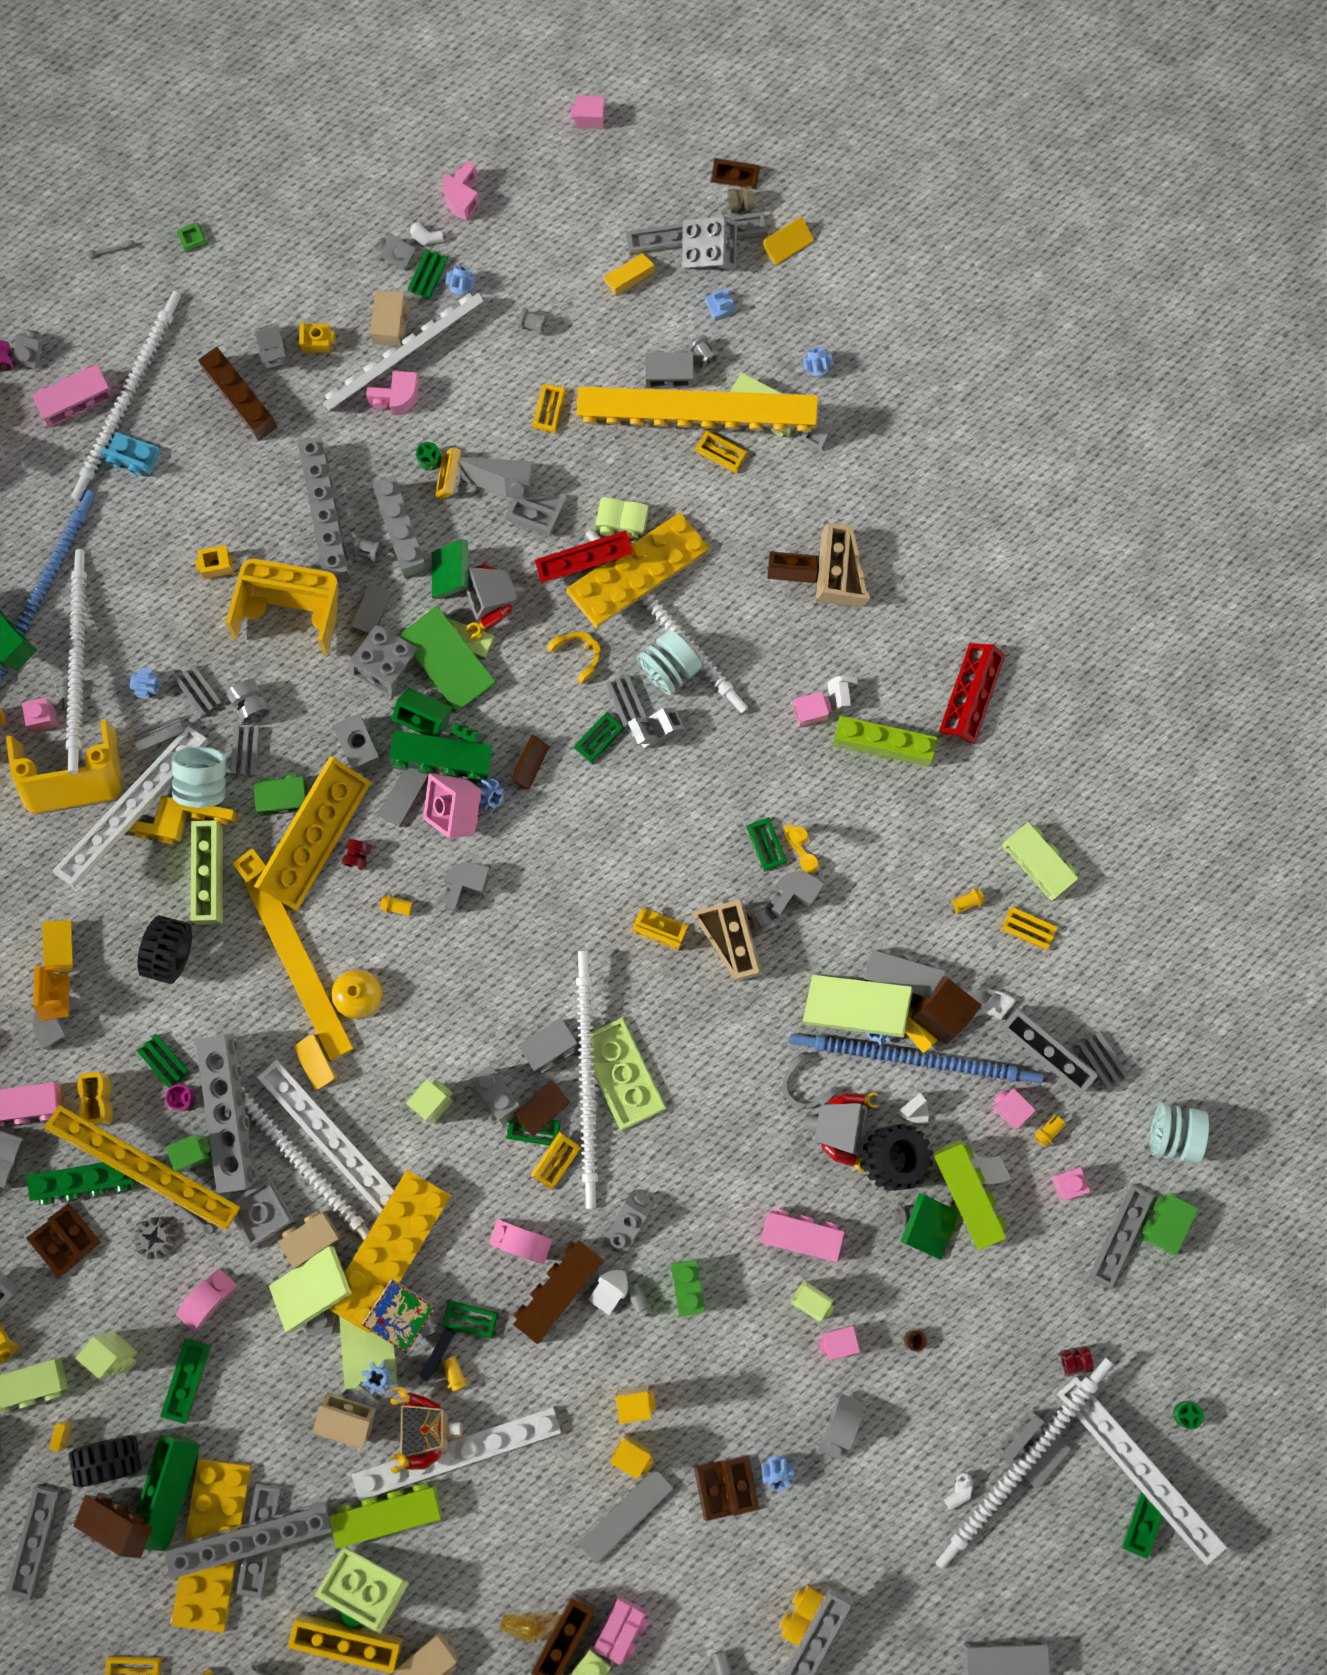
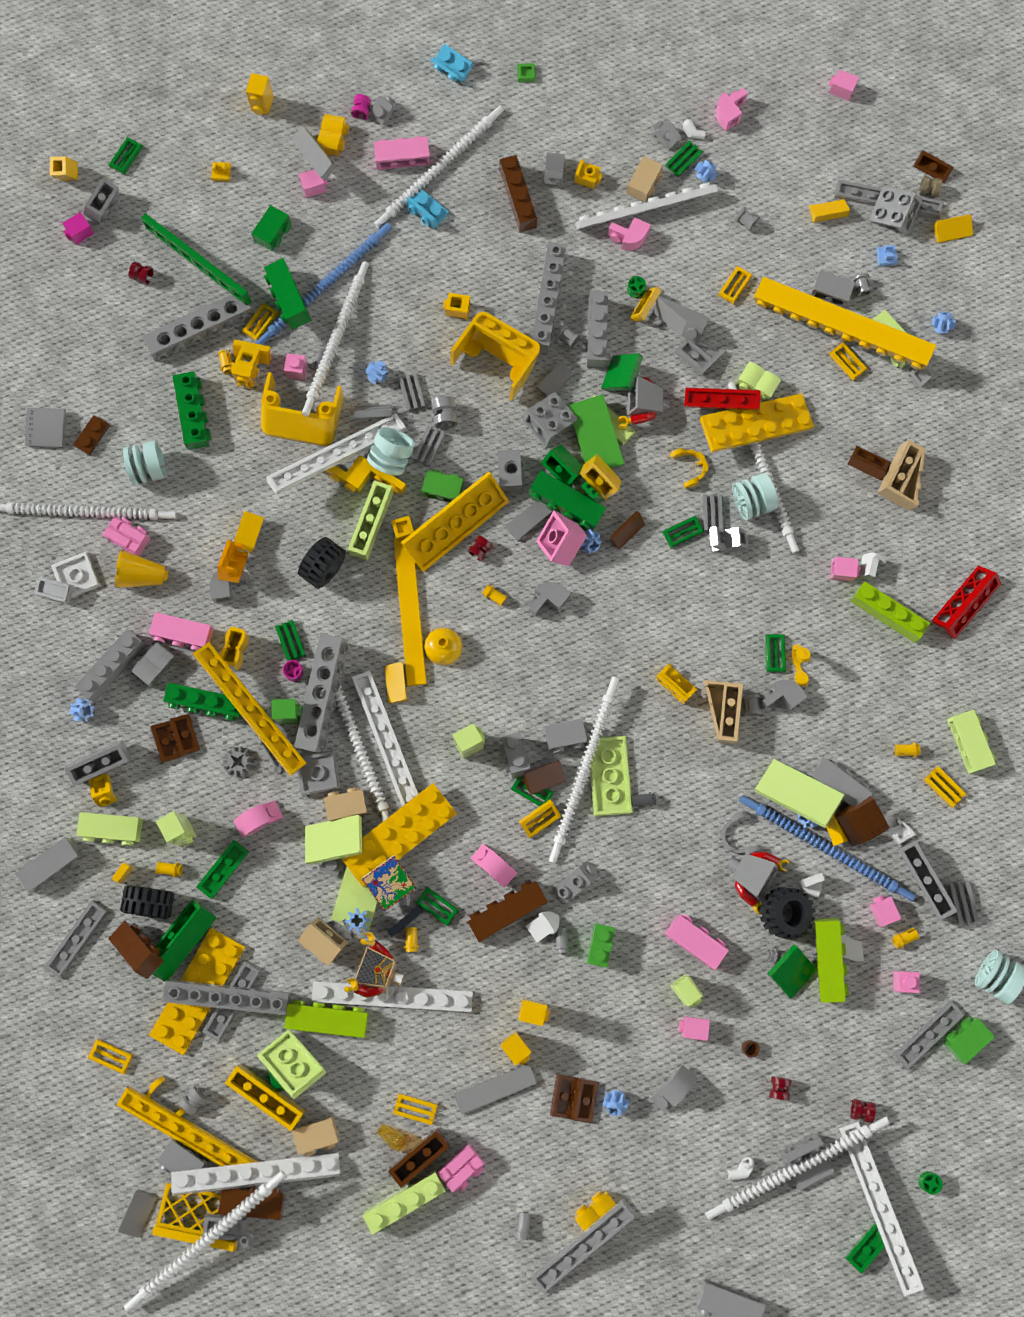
camera: 20 degrees right, 0 degrees up
(94, 259) = (453, 63): none -> medium azure bracket
(125, 1405) = (169, 869): none -> yellow pin
(472, 710) = (601, 477): none -> yellow brick
(541, 1580) = (416, 1109): none -> yellow tile
(674, 1087) = (644, 799): none -> dark grey pin
(965, 1368) = (780, 1083): none -> dark red wheel

